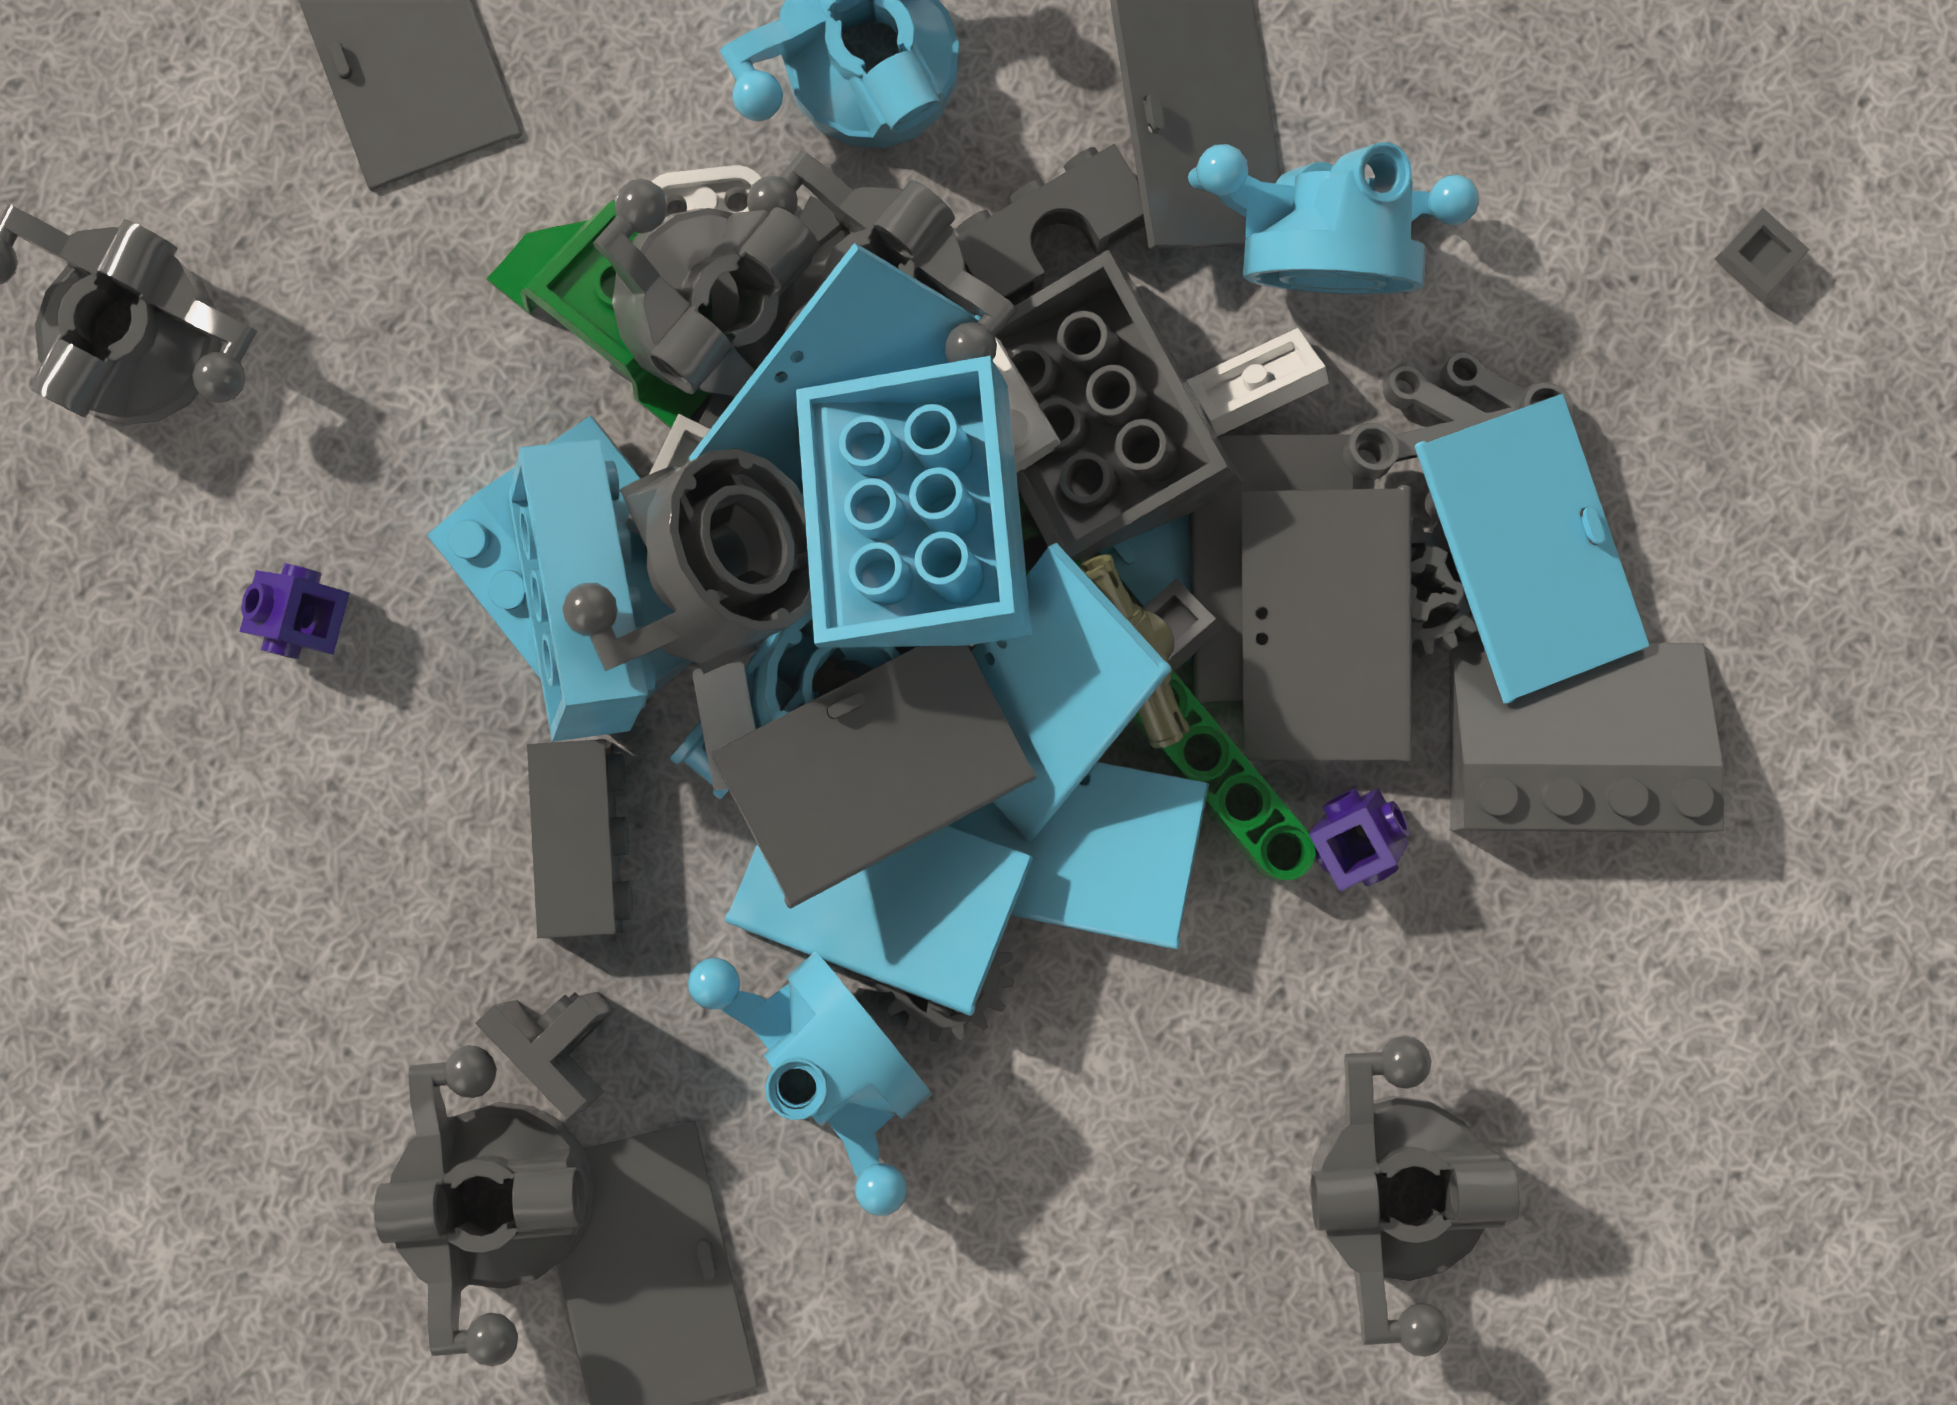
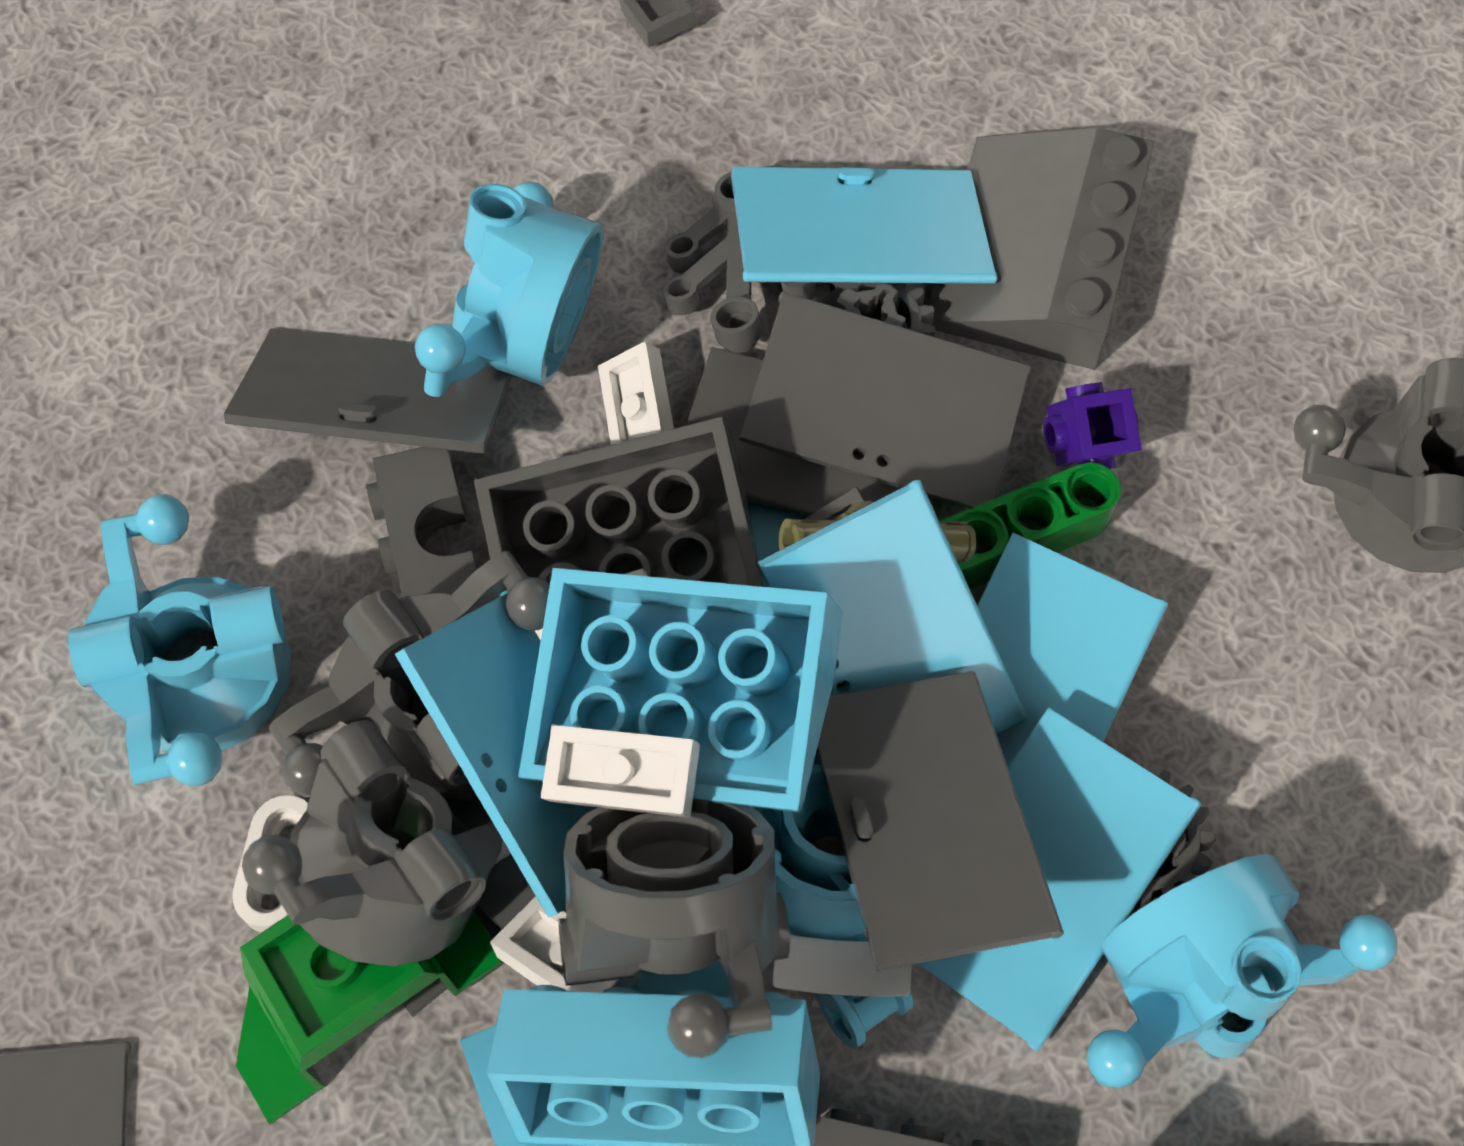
camera: 70 degrees left, 20 degrees down
(808, 477) = (621, 771): none -> white plate

